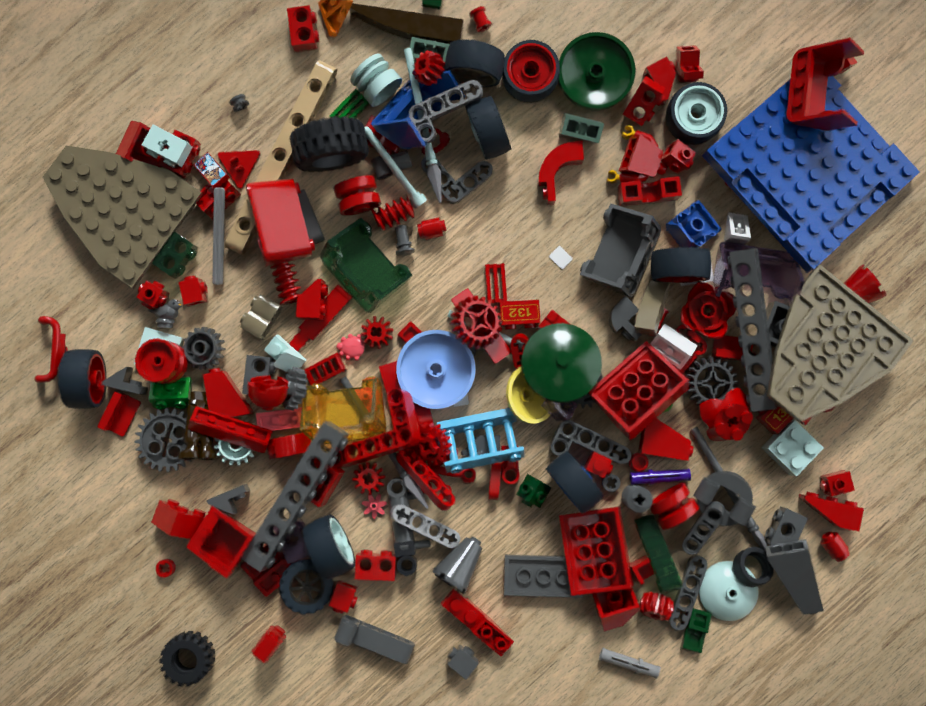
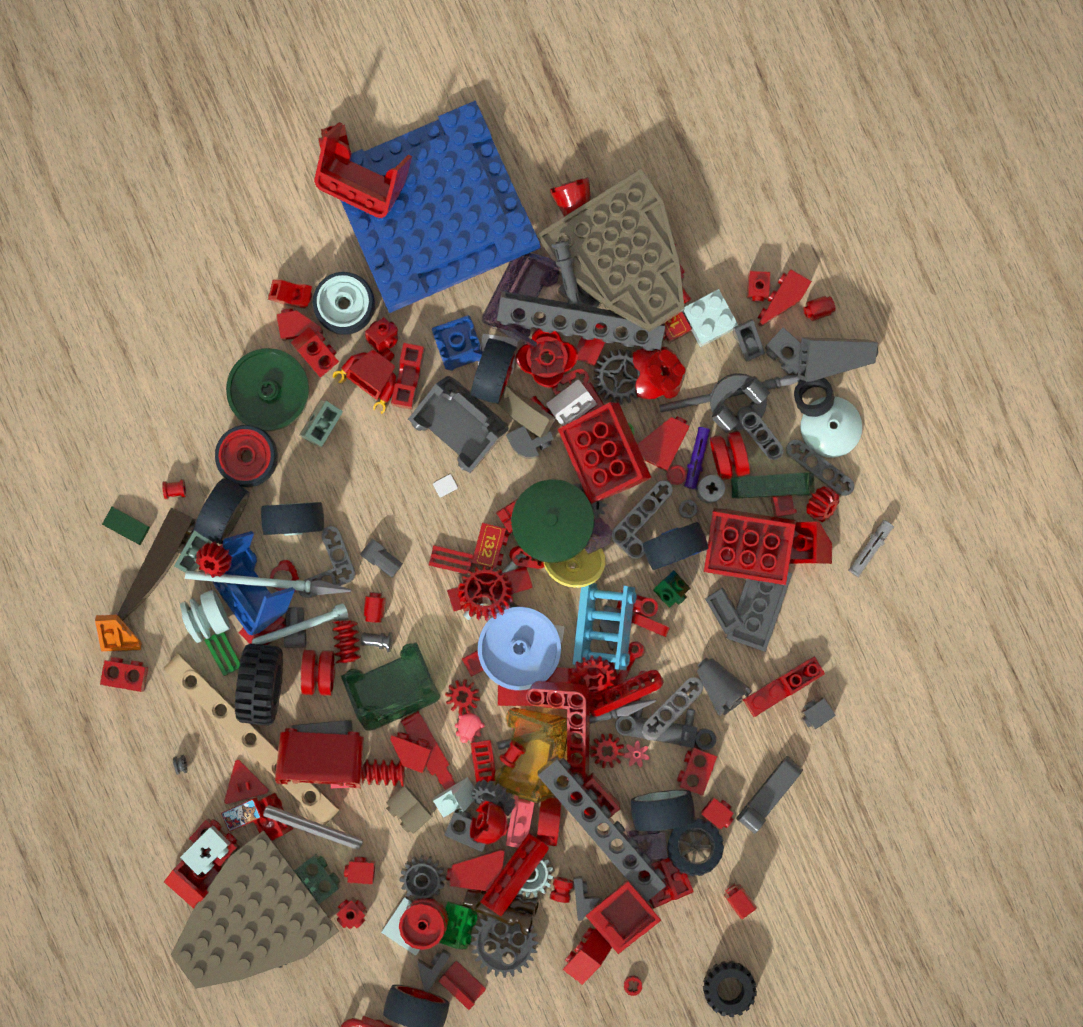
camera: 75 degrees left, 0 degrees up
(167, 313) = (375, 905): dark grey animal -> none
(231, 476) = (561, 889): none -> red wheel
(338, 393) = (512, 754): none -> red bush
(447, 106) = (259, 553): light grey beam -> none
(479, 217) = (378, 556): none -> dark grey piece
(529, 545) = (724, 611): none -> dark grey tile
(563, 155) = (342, 450): red arch -> none
(598, 464) = (666, 515): red brick -> none
(696, 630) = (860, 472): dark green slope -> none
(737, 229) = (473, 299): white slope -> none
(785, 489) = (748, 340): none -> dark grey slope
(805, 297) = (565, 262): none -> dark grey pin

